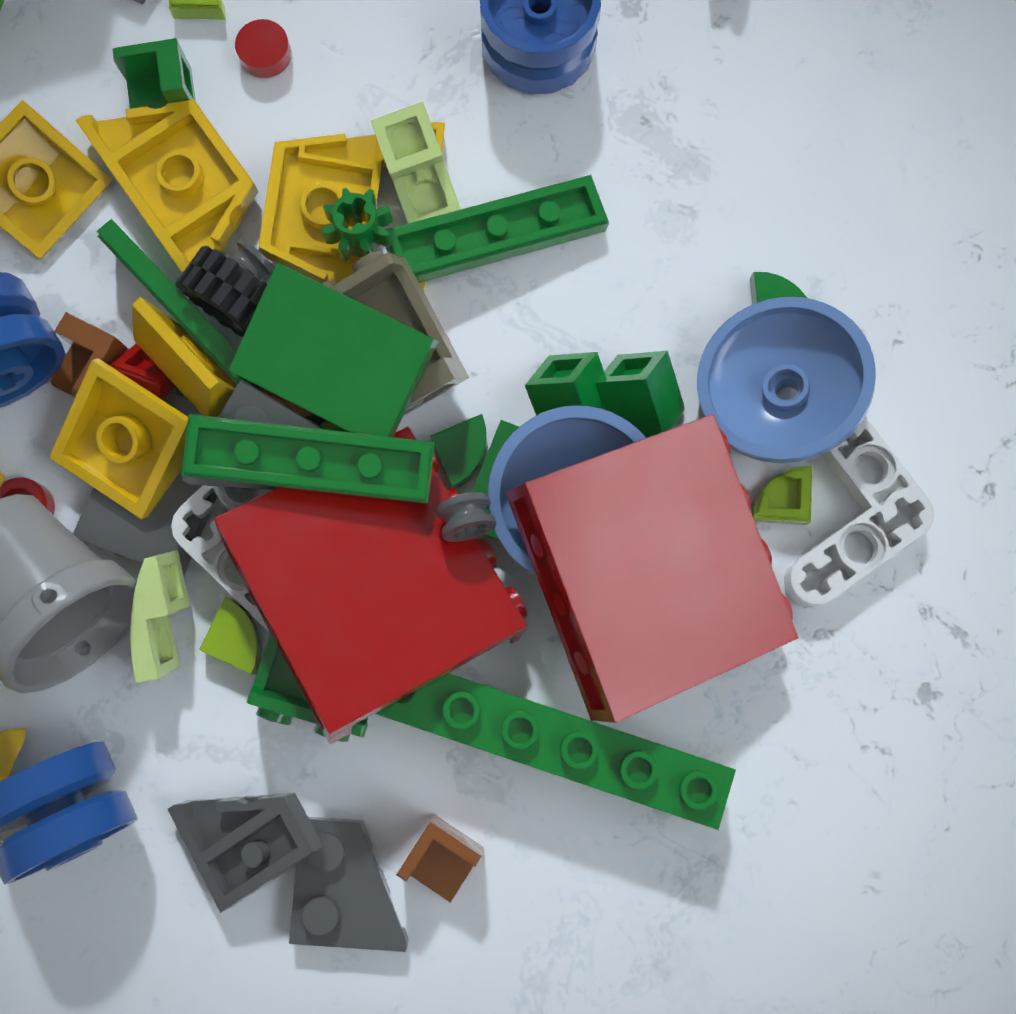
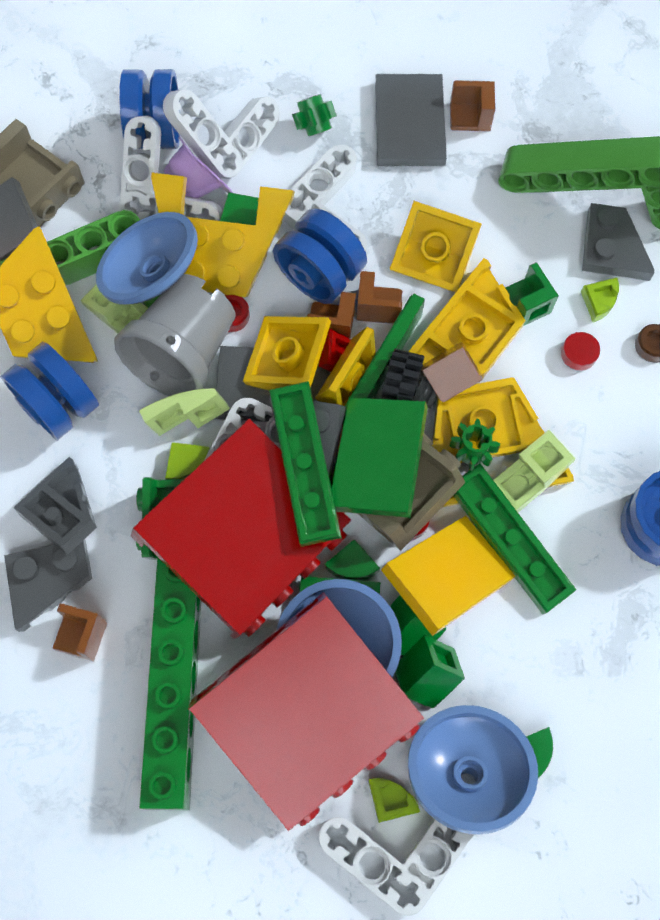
camera: 70 degrees right, 10 degrees down
(88, 289) = (377, 303): none -> dark orange panel
(238, 217) = (452, 372): none -> panel
(466, 516) = (298, 571): dark grey bush -> none
(525, 325) = (448, 574): none -> yellow tile

